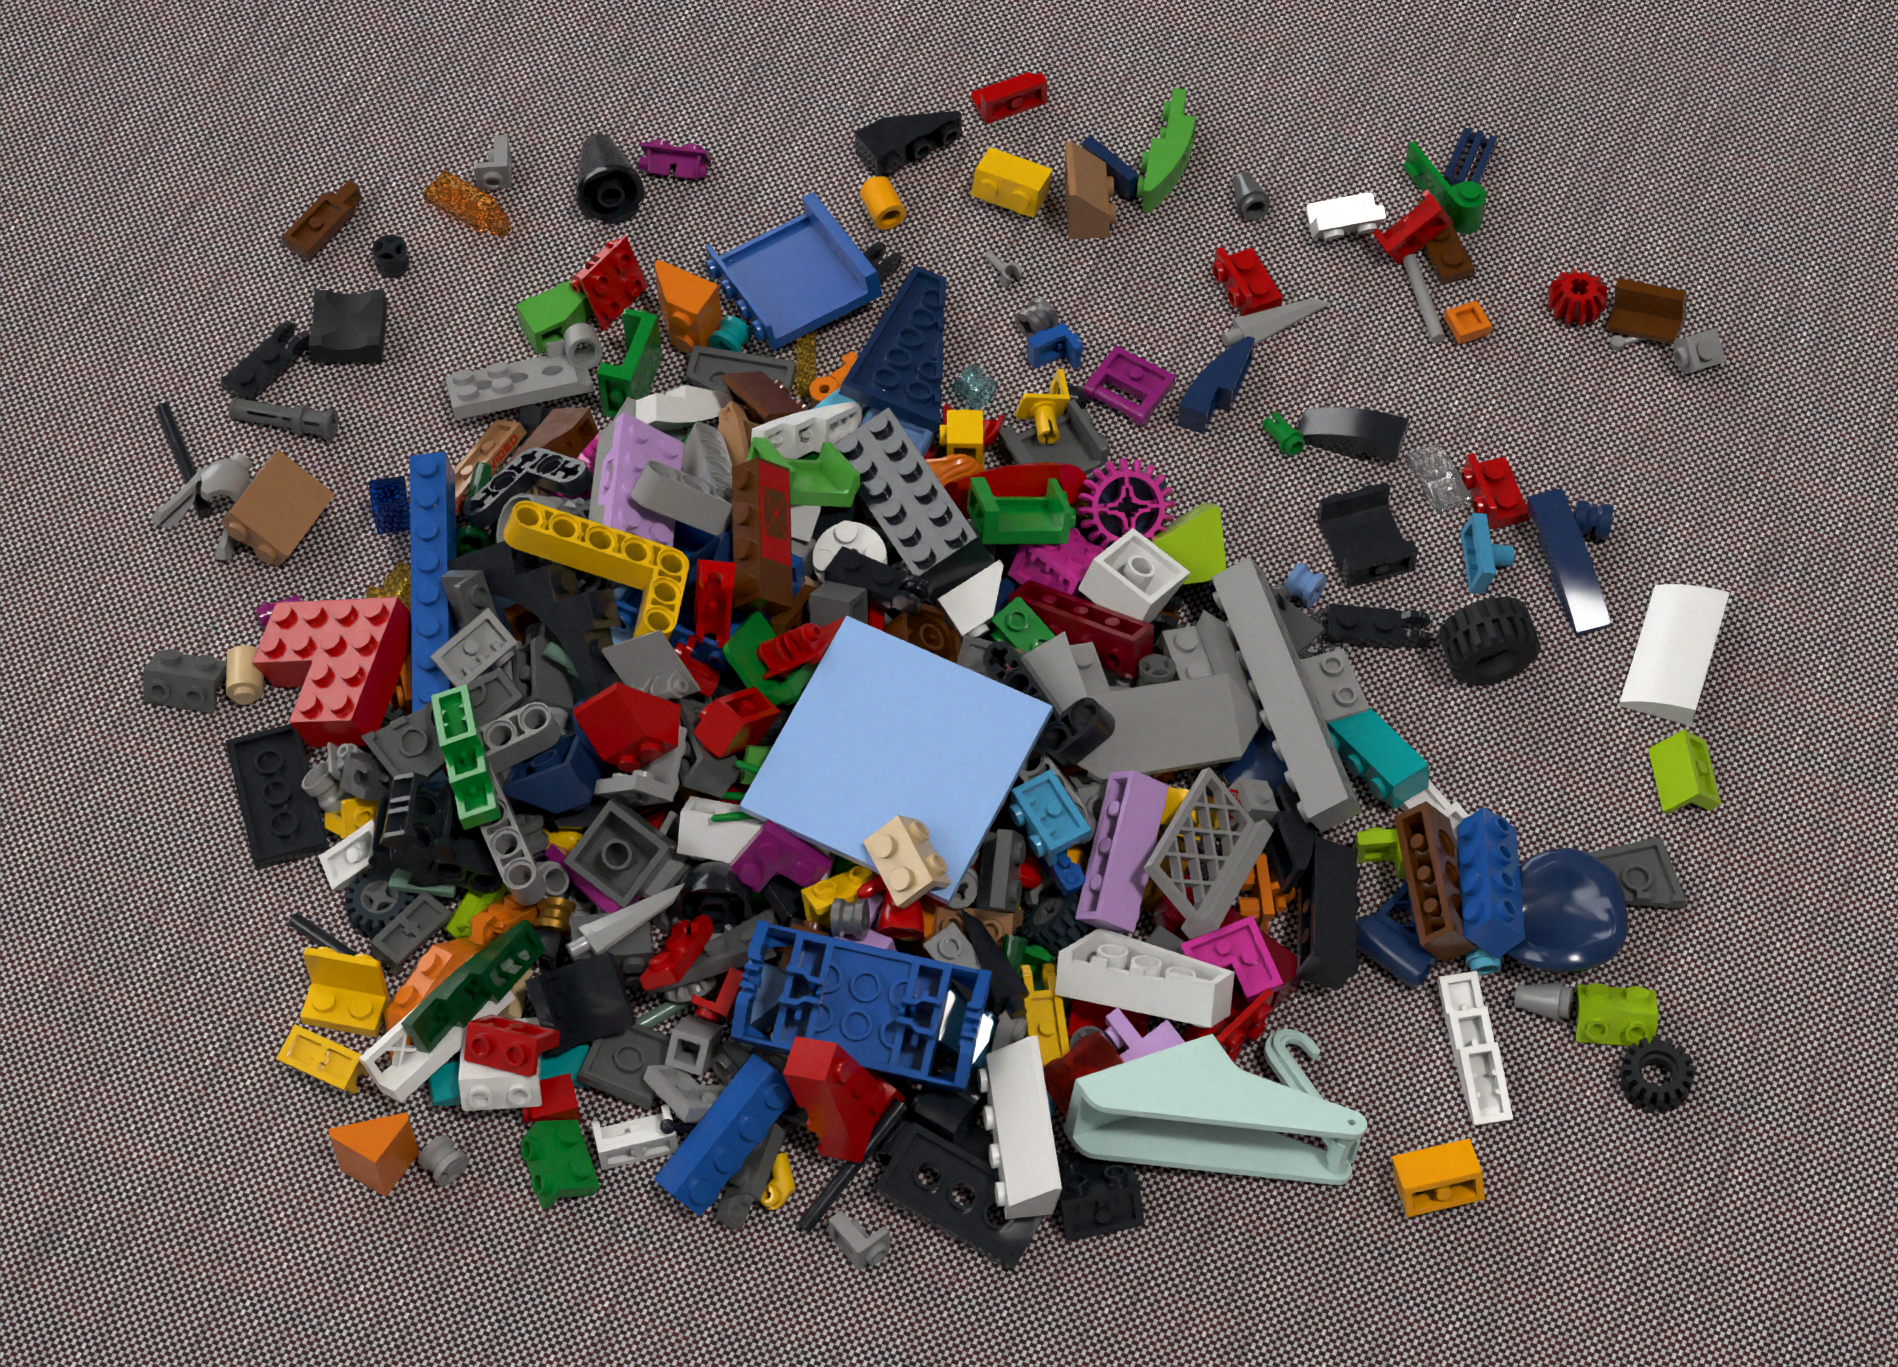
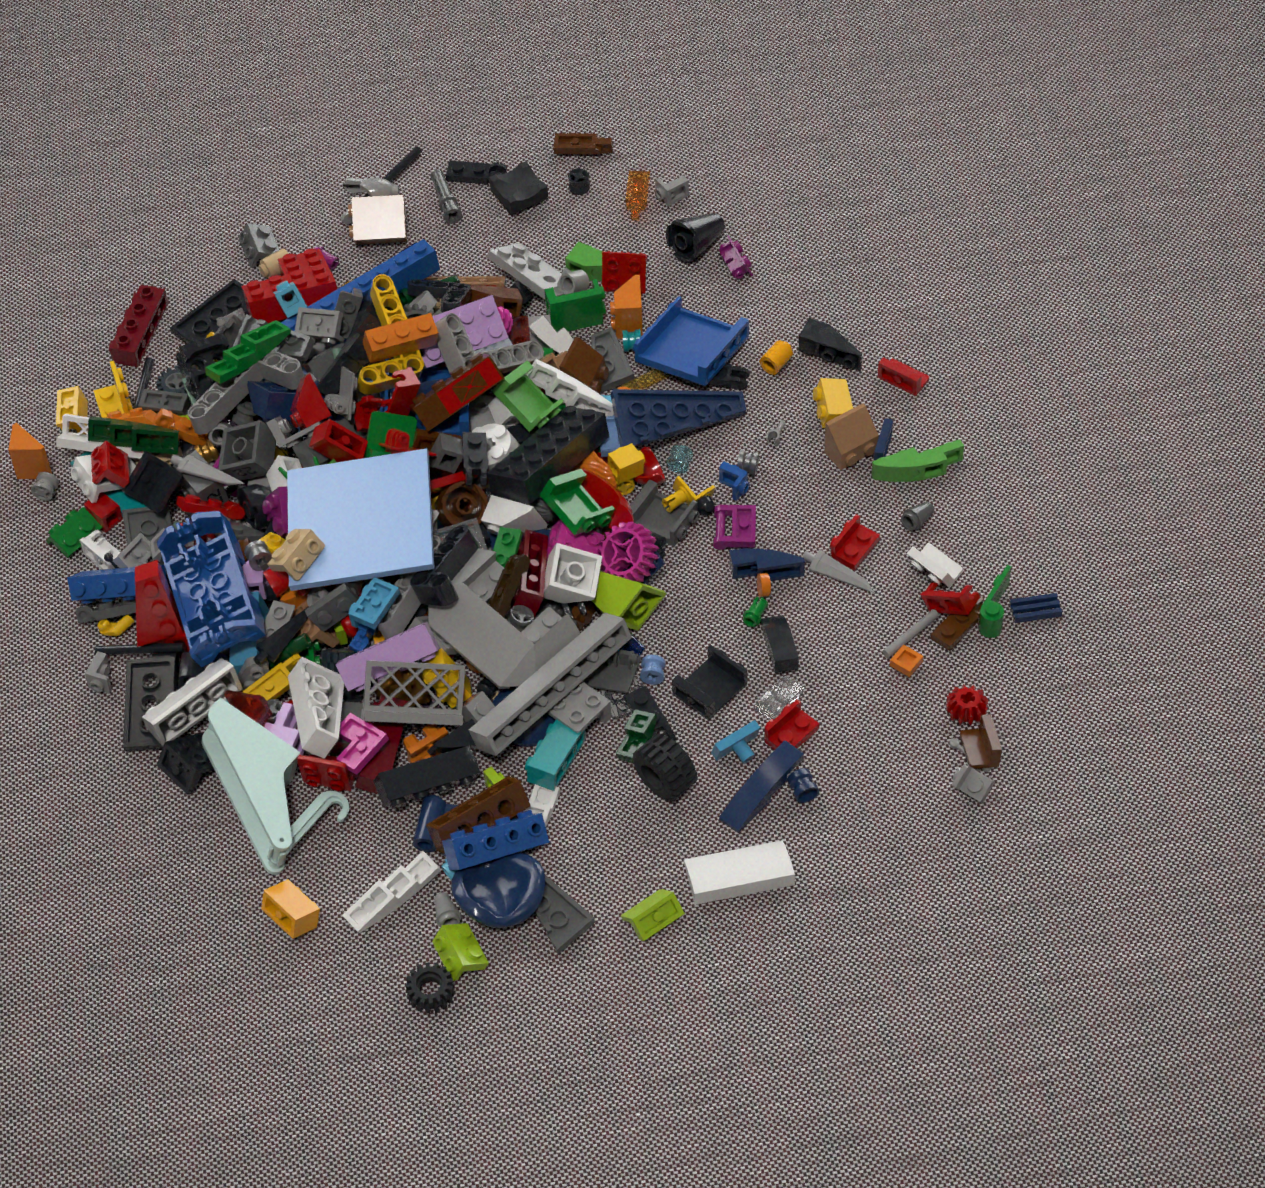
camera: 60 degrees right, 5 degrees down
(220, 900) = (138, 325): none -> dark red brick
(384, 663) = (289, 307): none -> medium azure brick
(639, 545) = (400, 337): none -> orange brick
(1112, 649) = (508, 583): none -> dark brown hinge
(1248, 403) = (763, 585): none -> orange tile
(1404, 653) = (638, 731): none -> dark green slope

